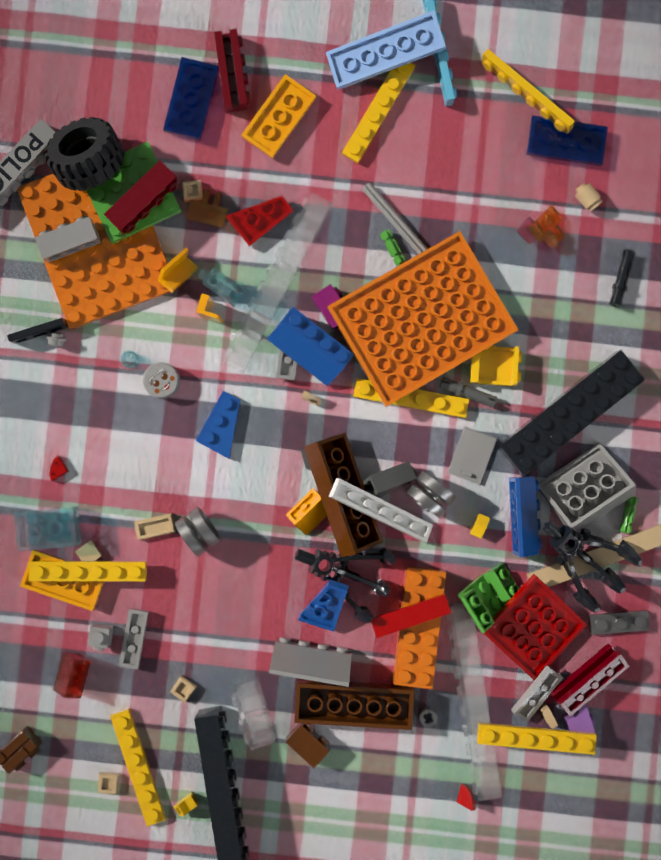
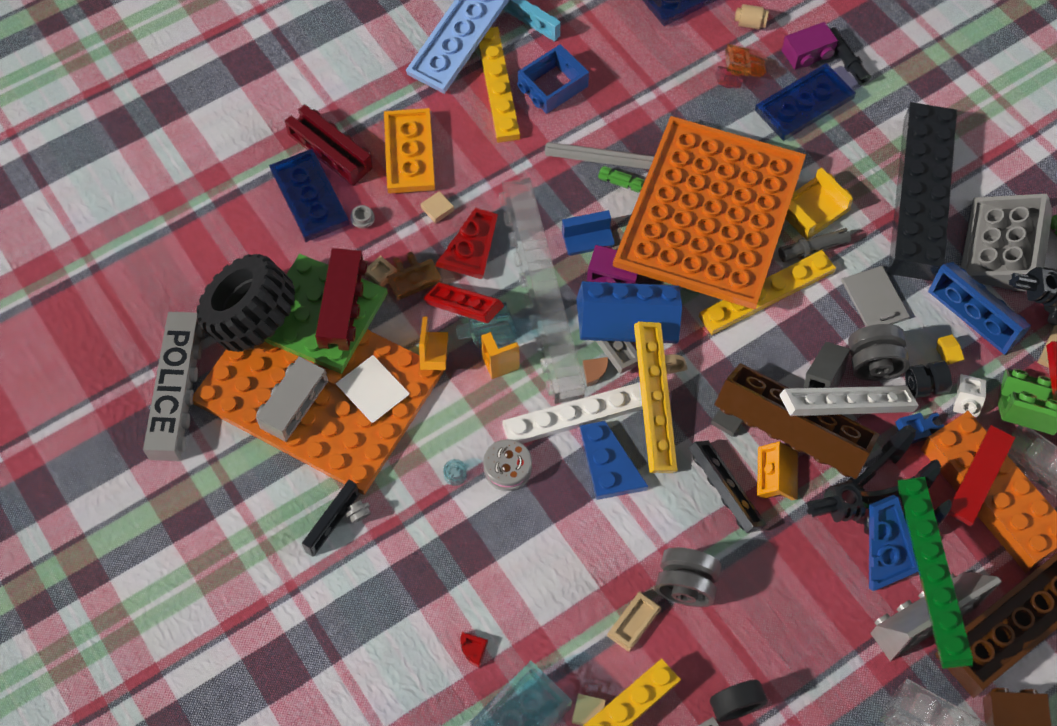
camera: 40 degrees left, 25 degrees down
(122, 269) = (372, 388): none -> white sticker
(165, 617) = (738, 700): none -> black tyre
(211, 142) = (362, 216): none -> light grey plate
(215, 259) = (463, 302): none -> red tile
(230, 381) = (573, 414): none -> white plate
(263, 173) = (437, 207): none -> tan tile
(263, 362) = (594, 369): none -> nougat tile
(272, 496) = (727, 486): none -> black plate
(278, 411) = (655, 398): none -> yellow plate
(320, 648) = (934, 574): none -> green plate
(338, 269) = (586, 231): none -> blue panel
(412, 553) = (923, 426): none -> blue plate
(414, 121) = (567, 64): none -> blue window
(452, 537) = (932, 379): none -> black wheel
(464, 560) = (970, 395): none -> white bracket
(561, 289) = (805, 101): none -> clear blue plate
(604, 251) = (809, 45): none -> magenta brick

